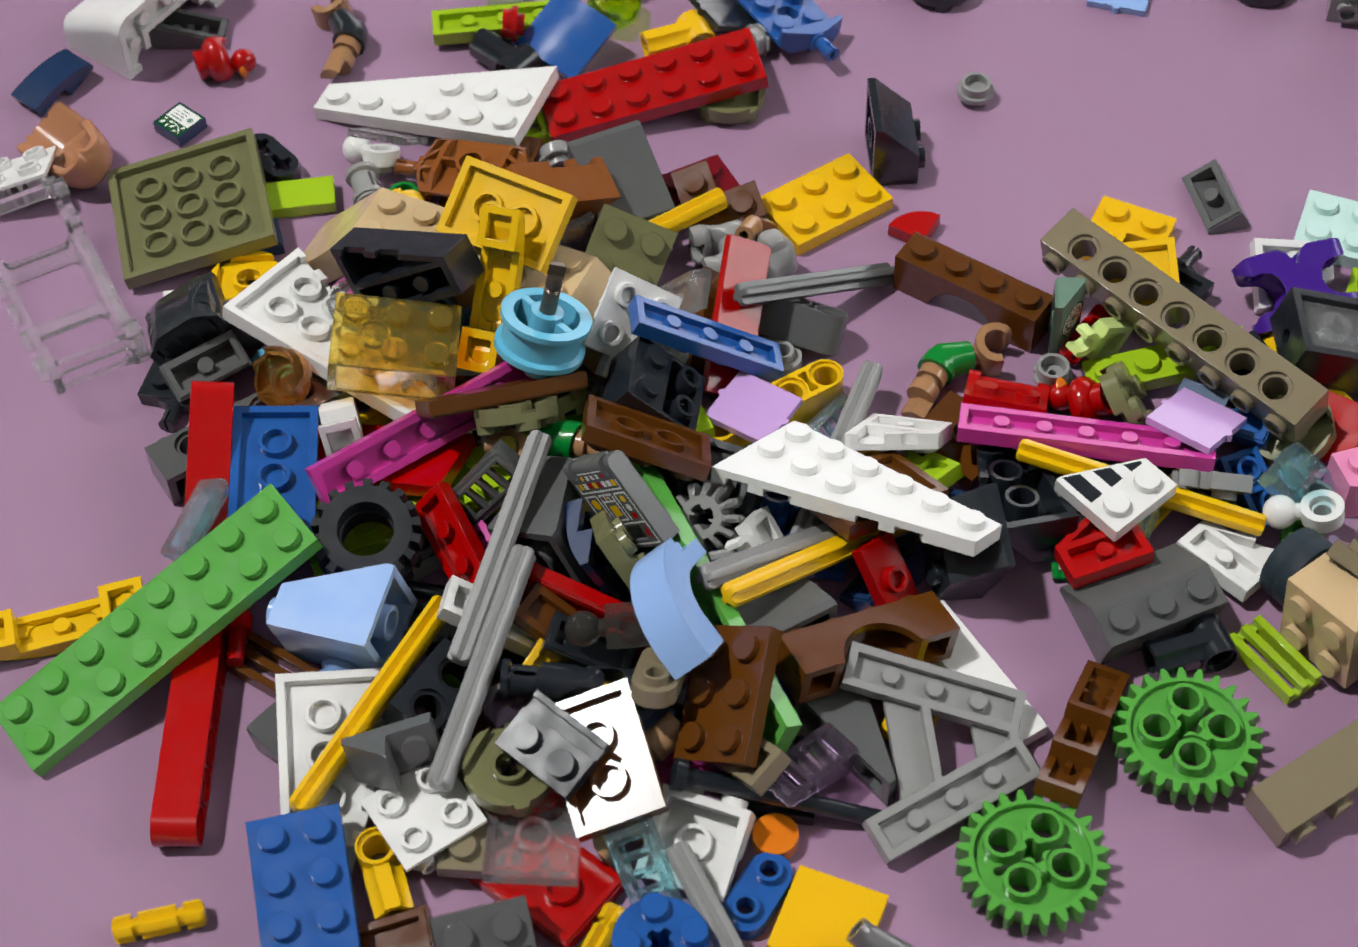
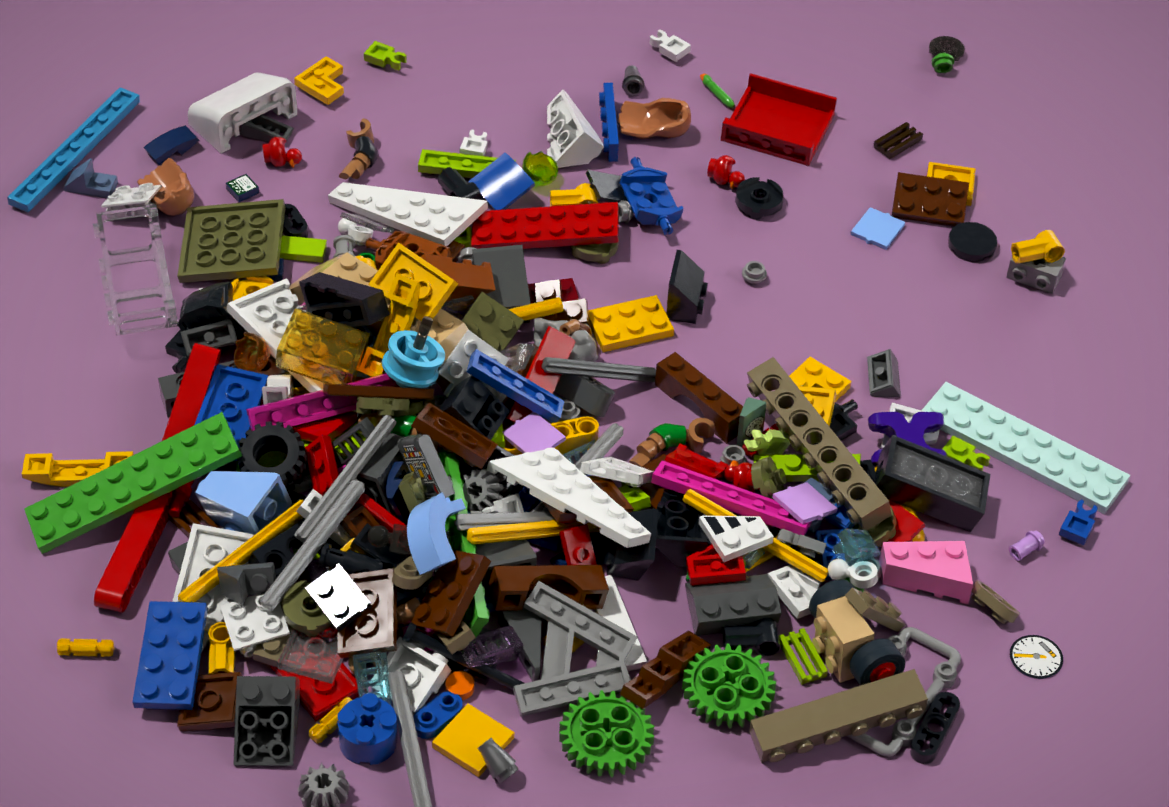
camera: 10 degrees right, 5 degrees down
(196, 517) = (176, 423): clear light blue slope -> none
(512, 23) = (468, 168): red plate -> none
(917, 221) = (684, 348): red tile -> none

